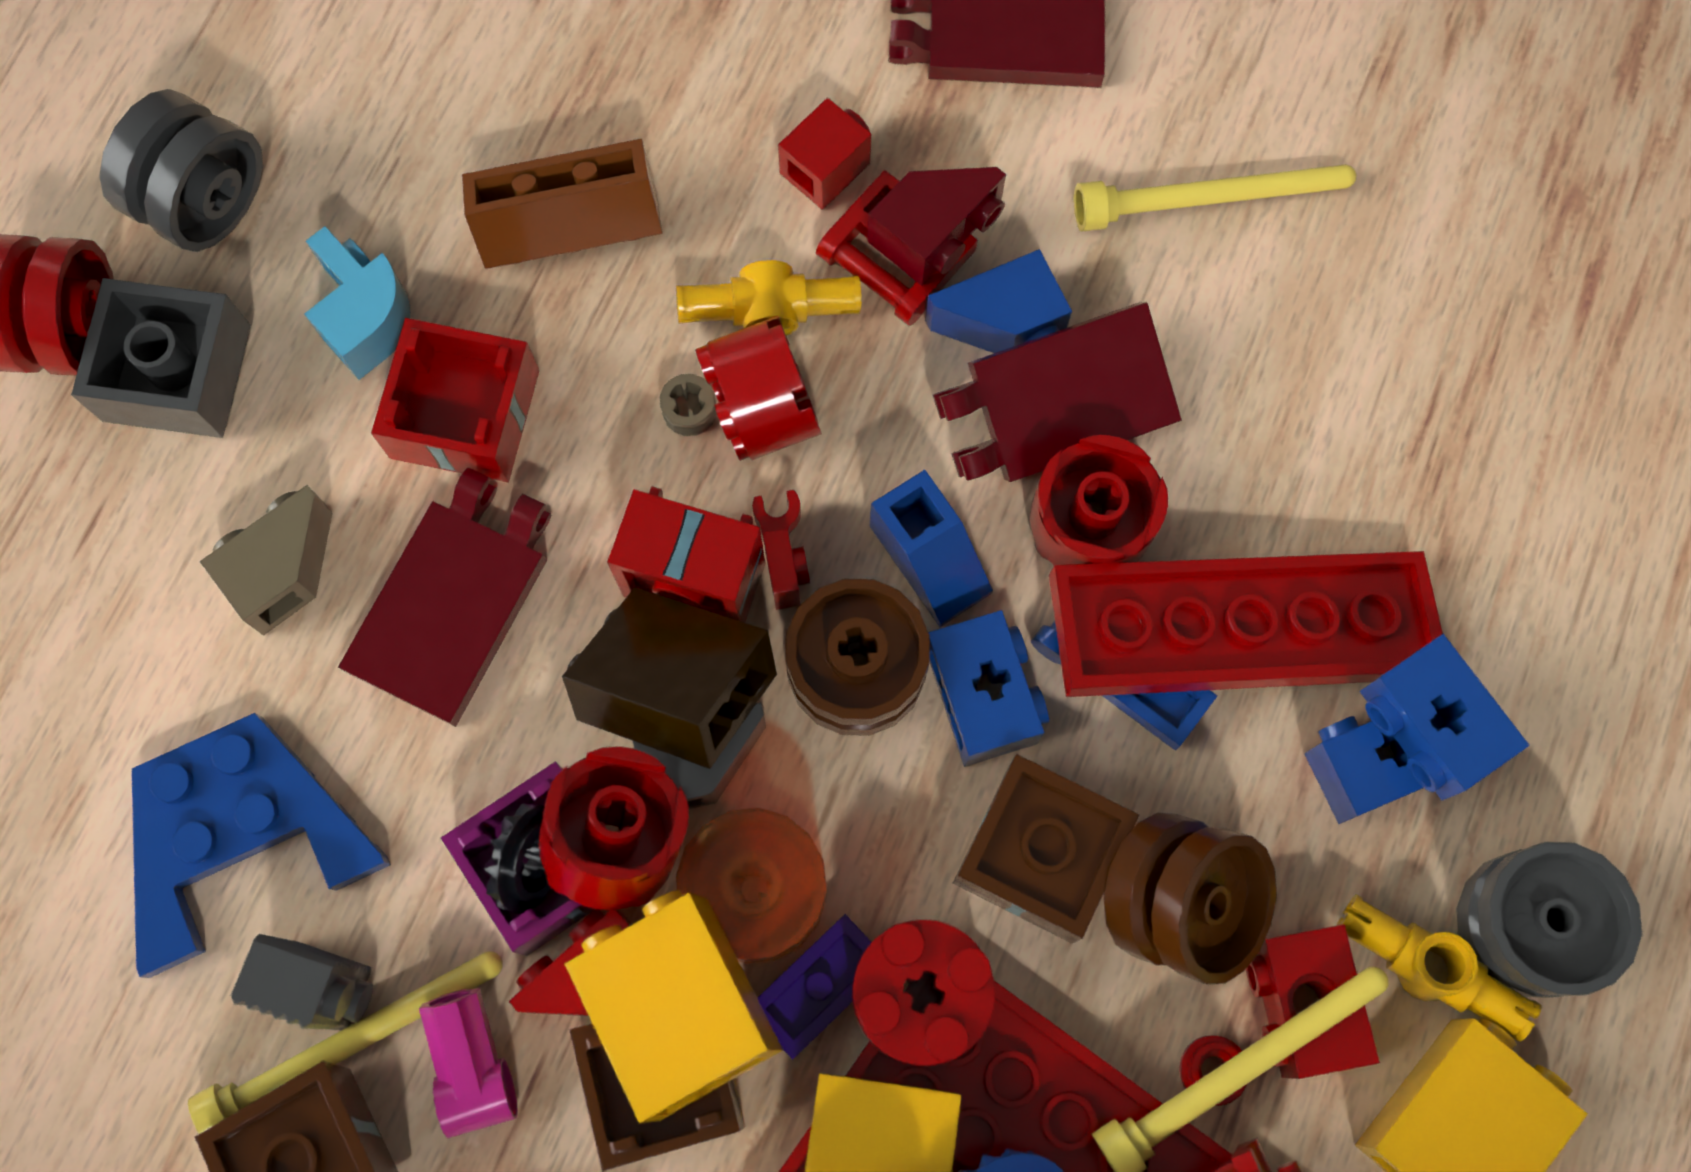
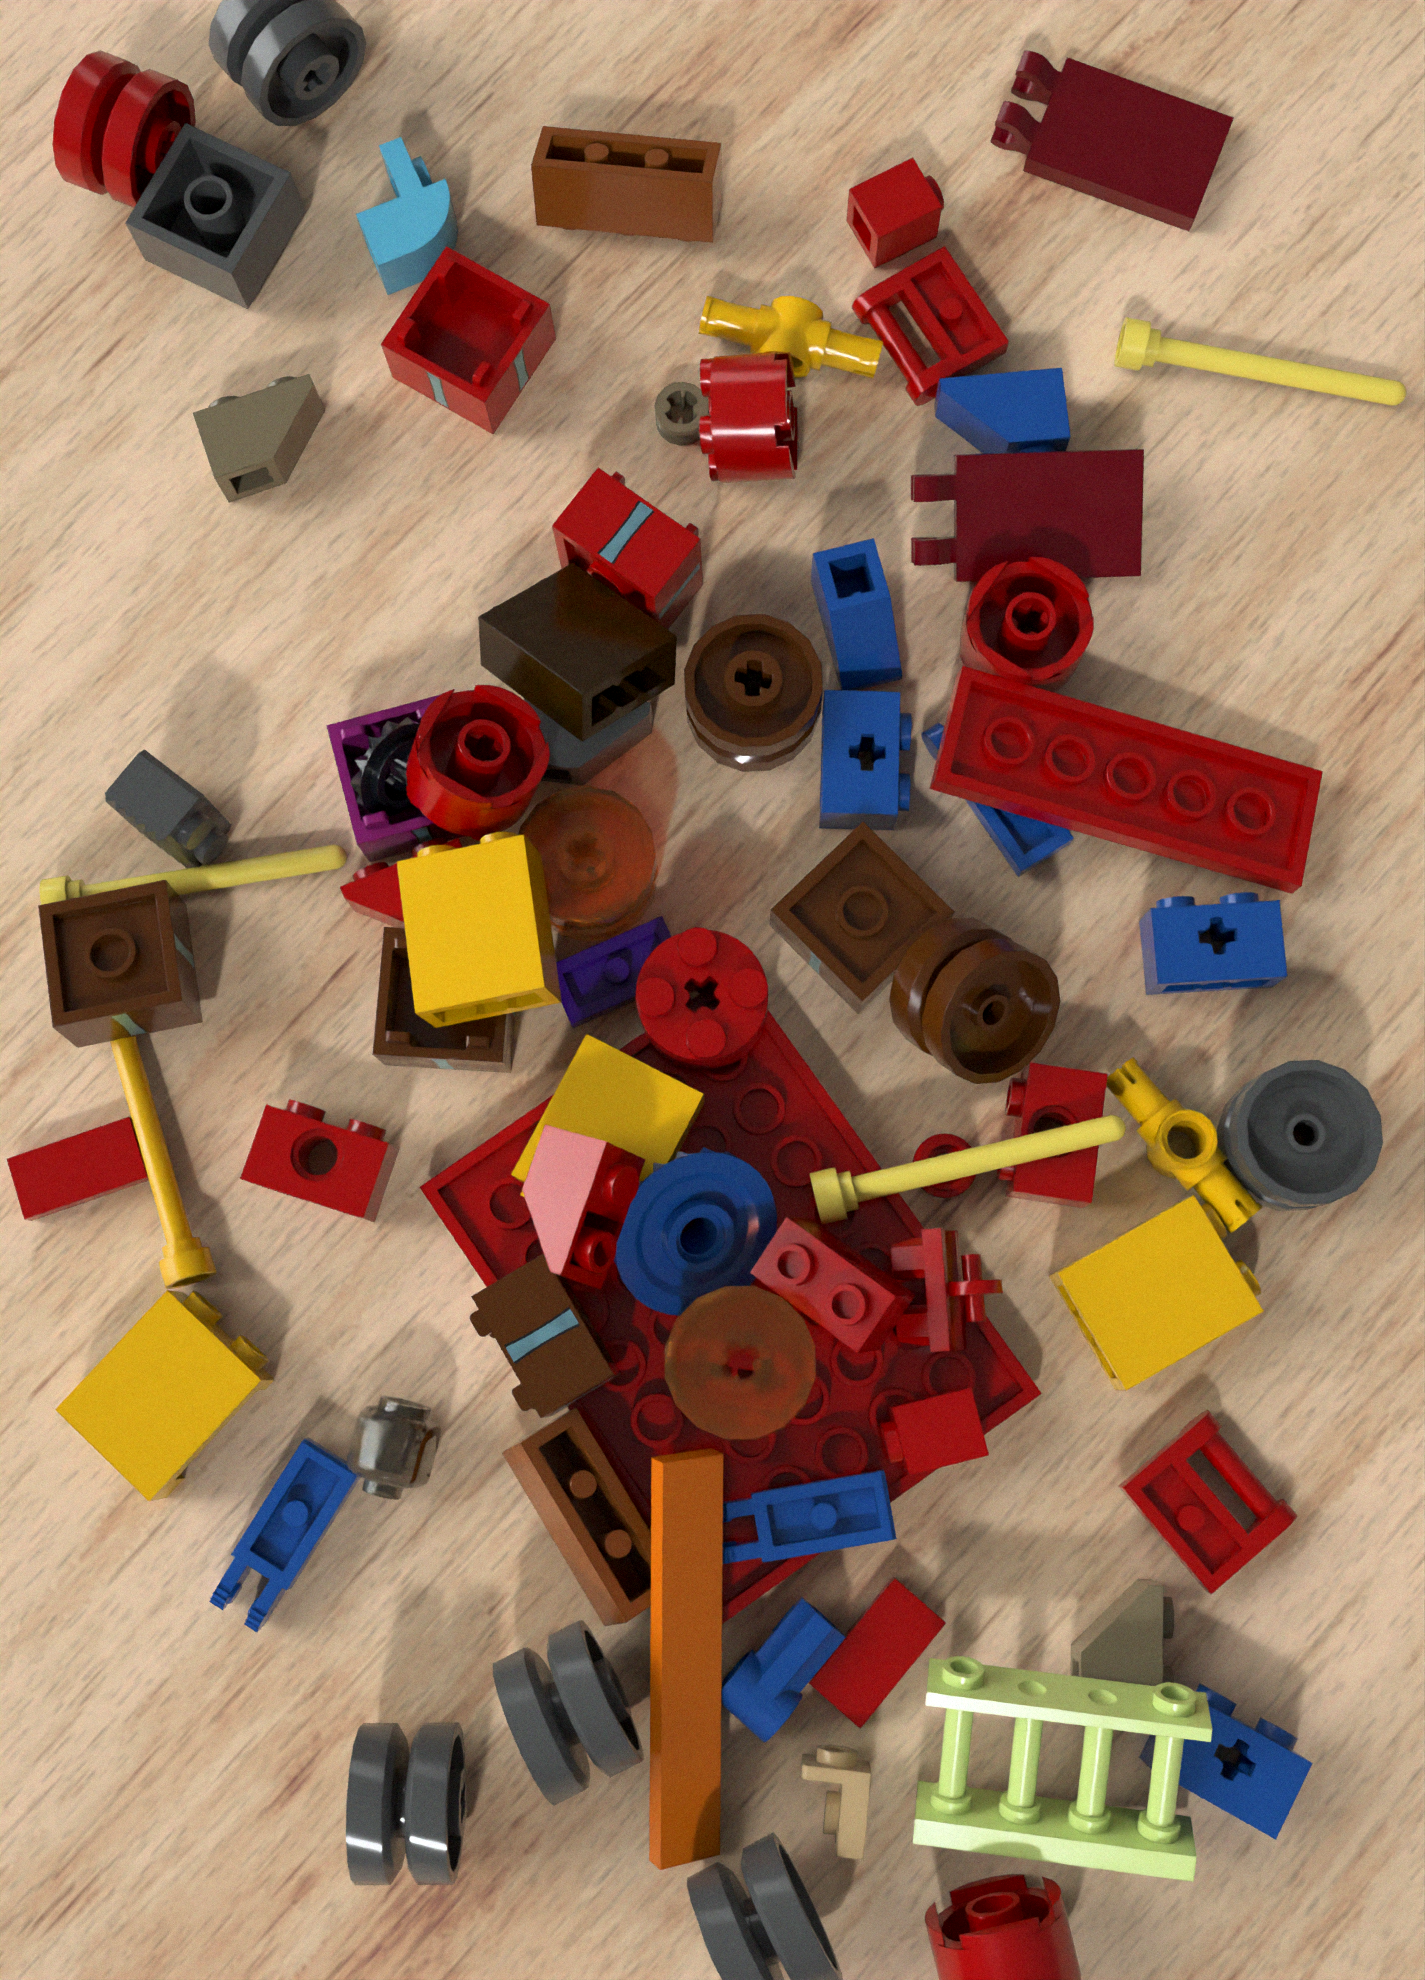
camera: 25 degrees right, 5 degrees up
(217, 807) = (139, 641): blue wing -> none
(449, 601) = (405, 523): dark red tile -> none
(471, 1082) = (286, 949): dark pink piece -> none
(785, 564) = (718, 588): red plate -> none
(932, 215) = (971, 303): dark red slope -> none
(1475, 730) = (1275, 887): blue brick -> none

